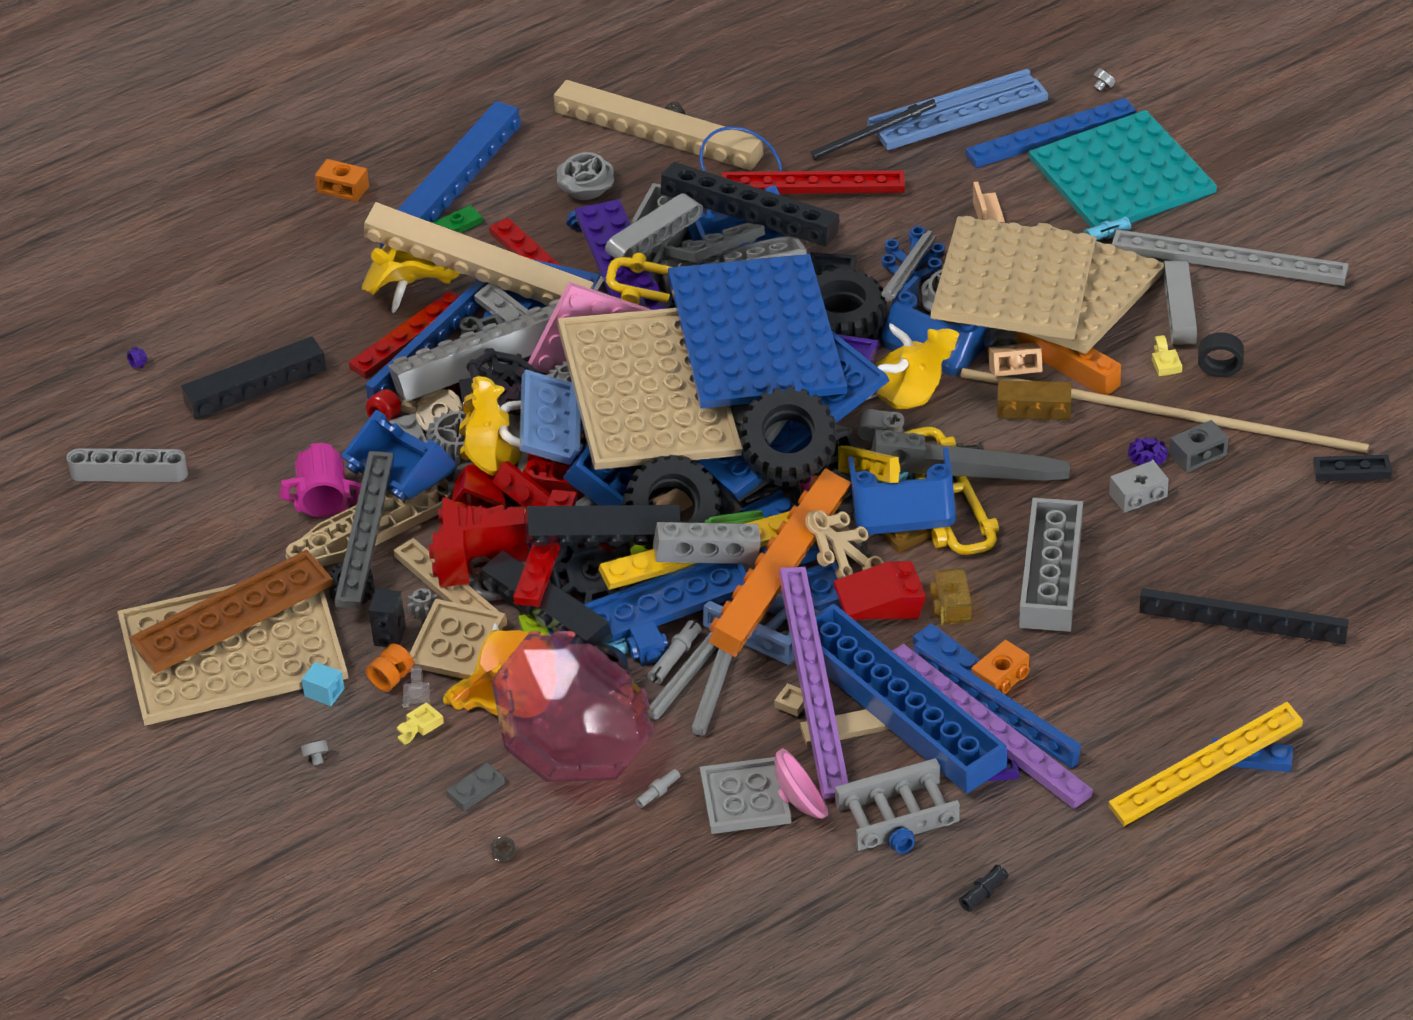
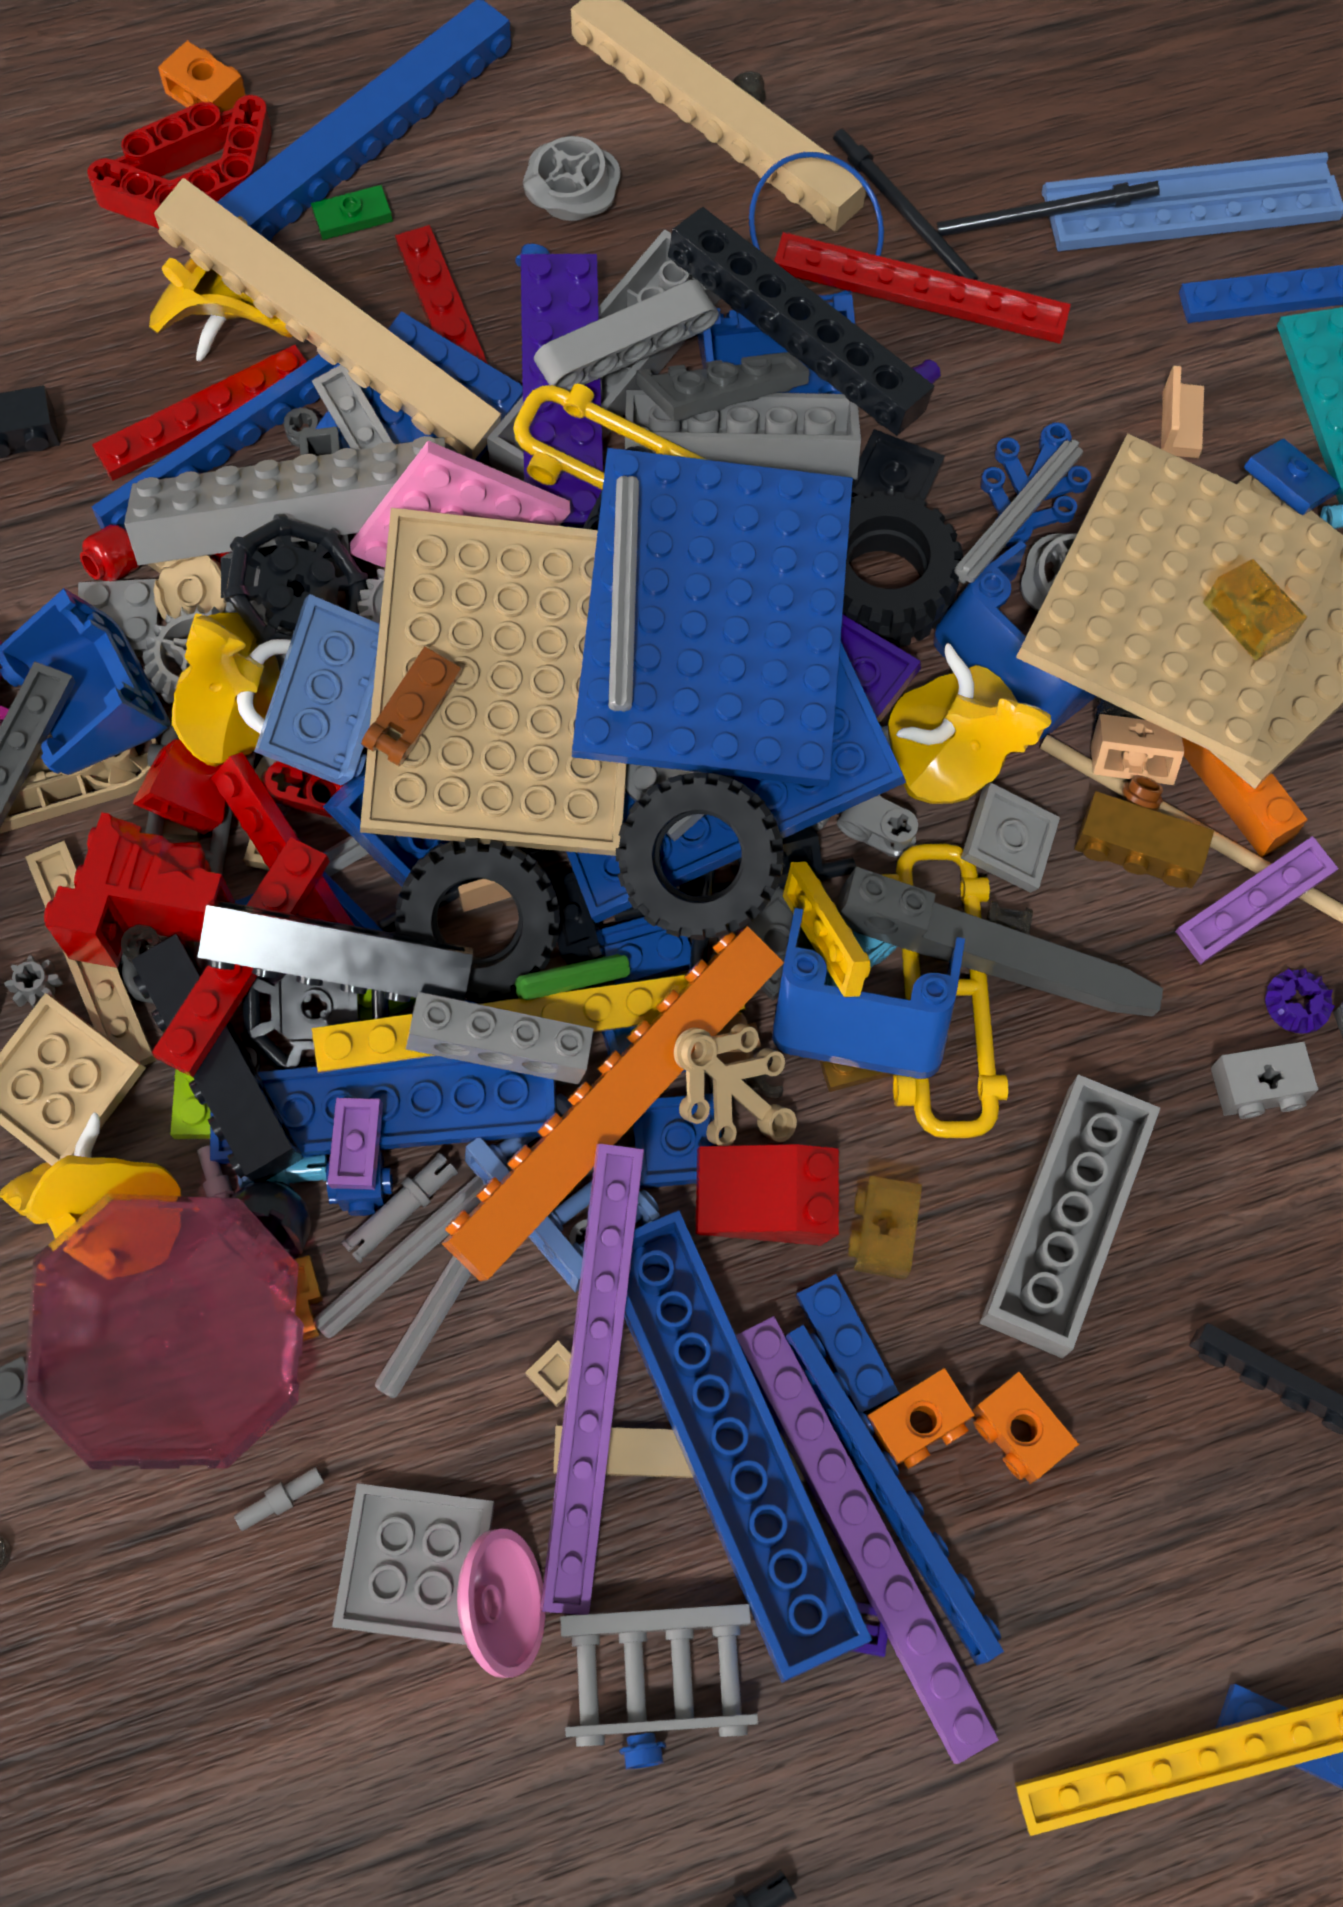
camera: 10 degrees right, 25 degrees up
(326, 232) = (135, 181): none -> red piece
(604, 401) = (412, 705): none -> dark orange plate
(641, 617) = (355, 1143): none -> medium lavender plate
(703, 324) = (624, 594): none -> light grey axle
(787, 148) = (863, 162): none -> black bar
(958, 414) = (1010, 837): none -> light grey plate
(1024, 375) = (1143, 792): none -> dark orange plate
(1055, 268) = (1254, 609): none -> clear yellow brick
(1059, 660) = (1049, 1437): none -> orange brick
(1060, 220) = (1292, 476): none -> blue plate
(1106, 410) = (1256, 900): none -> medium lavender plate

